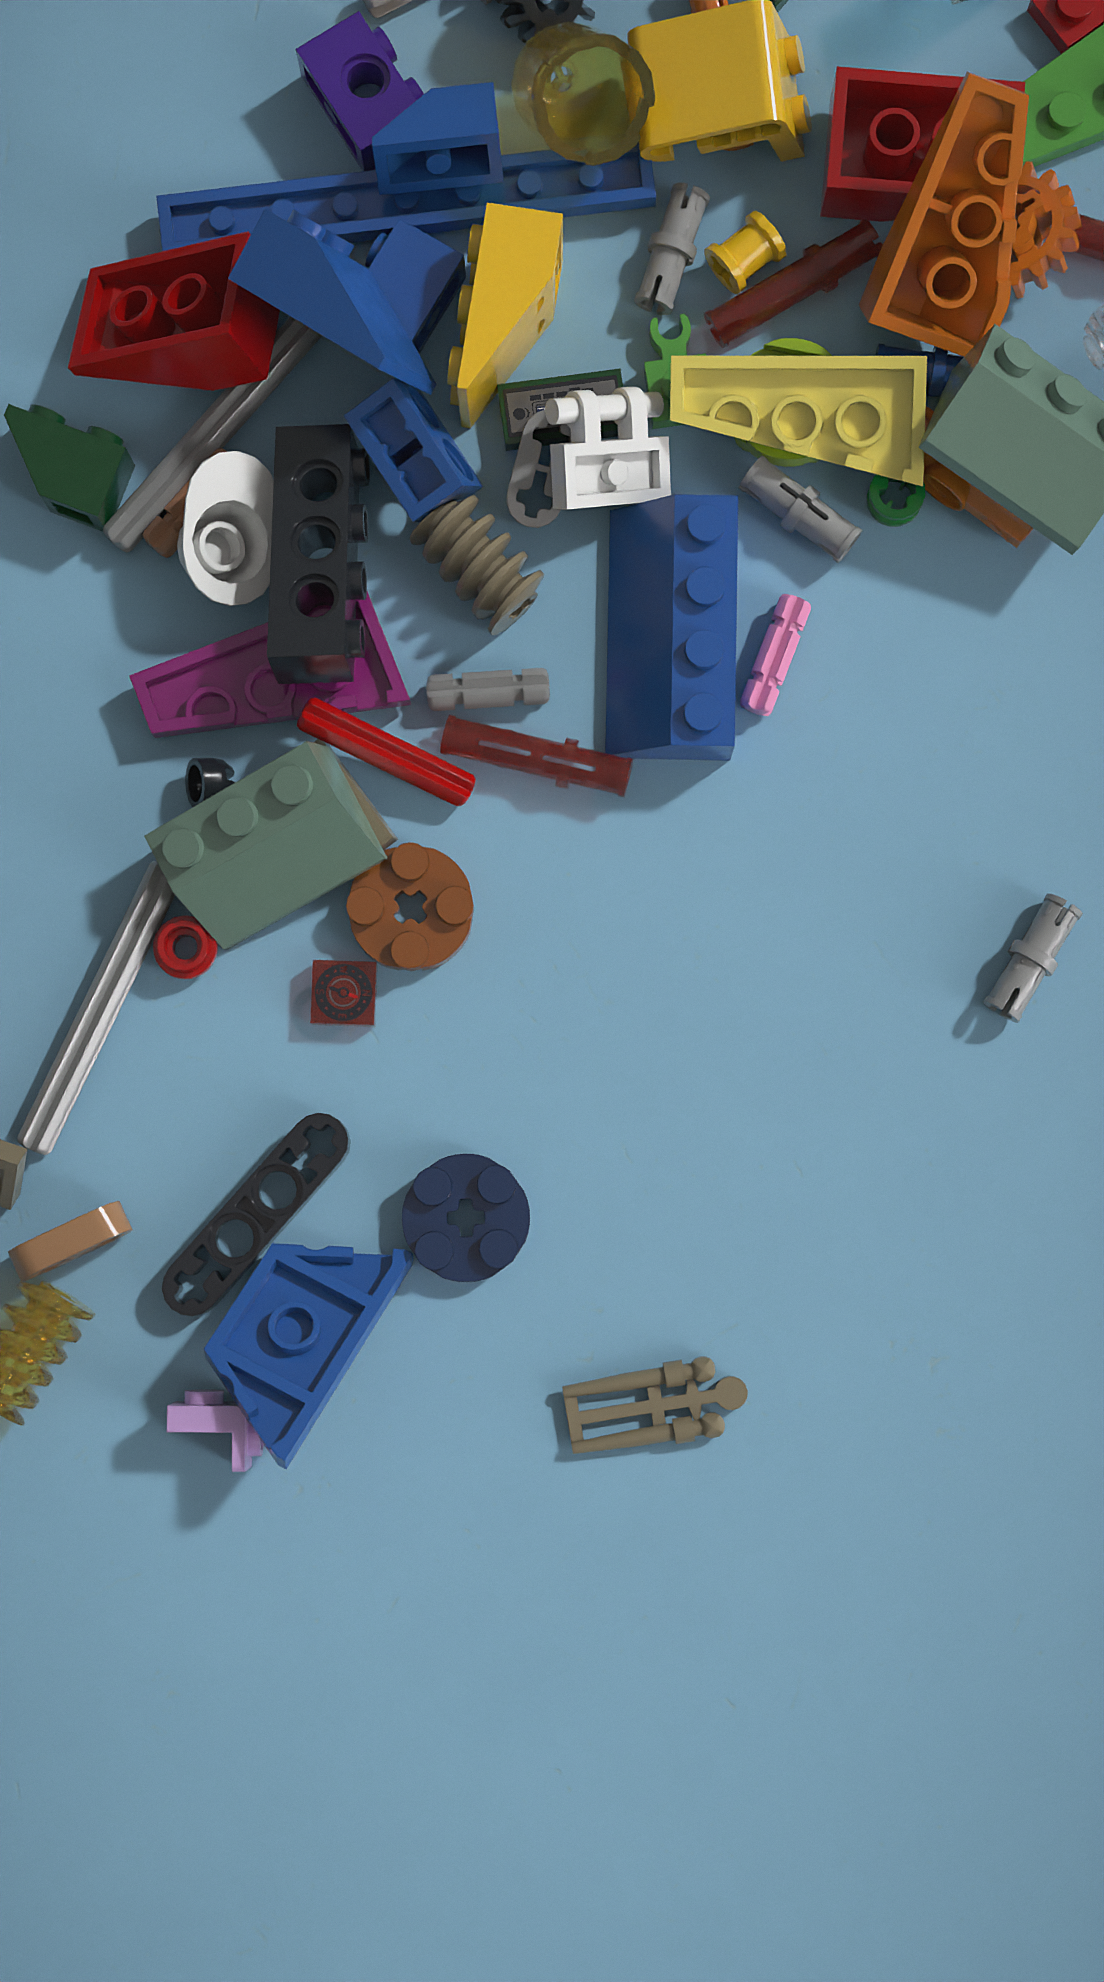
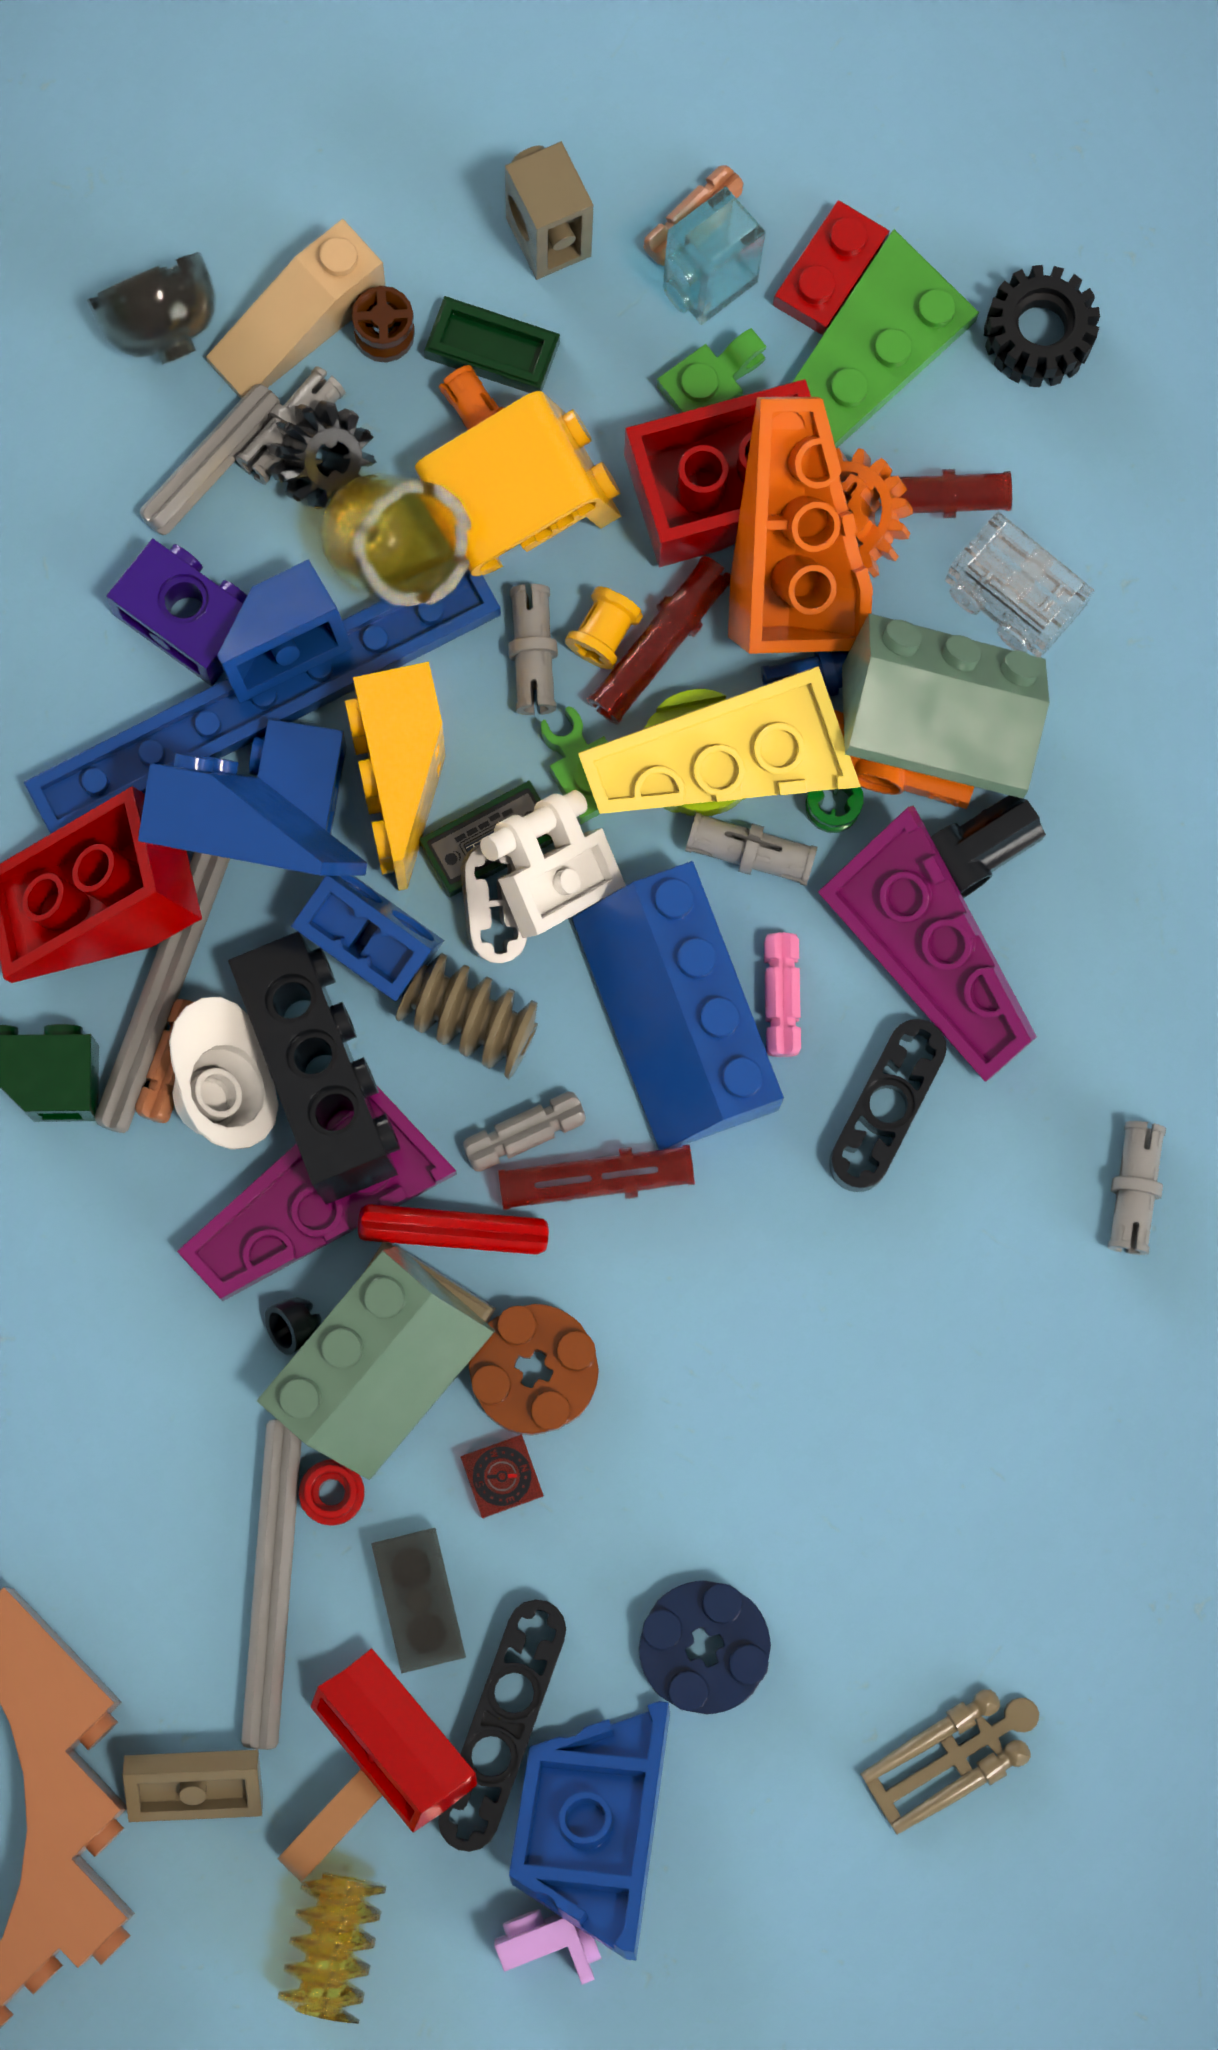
camera: 30 degrees left, 5 degrees down
(149, 1189) = (393, 1740): none -> red piece
(224, 1073) = (418, 1600): none -> clear smoke plate
(877, 775) = (923, 1071): none -> black beam
(929, 651) = (924, 935): none -> magenta wing
(938, 53) = (710, 379): none -> bright green plate
(996, 590) = (988, 841): none -> black piece

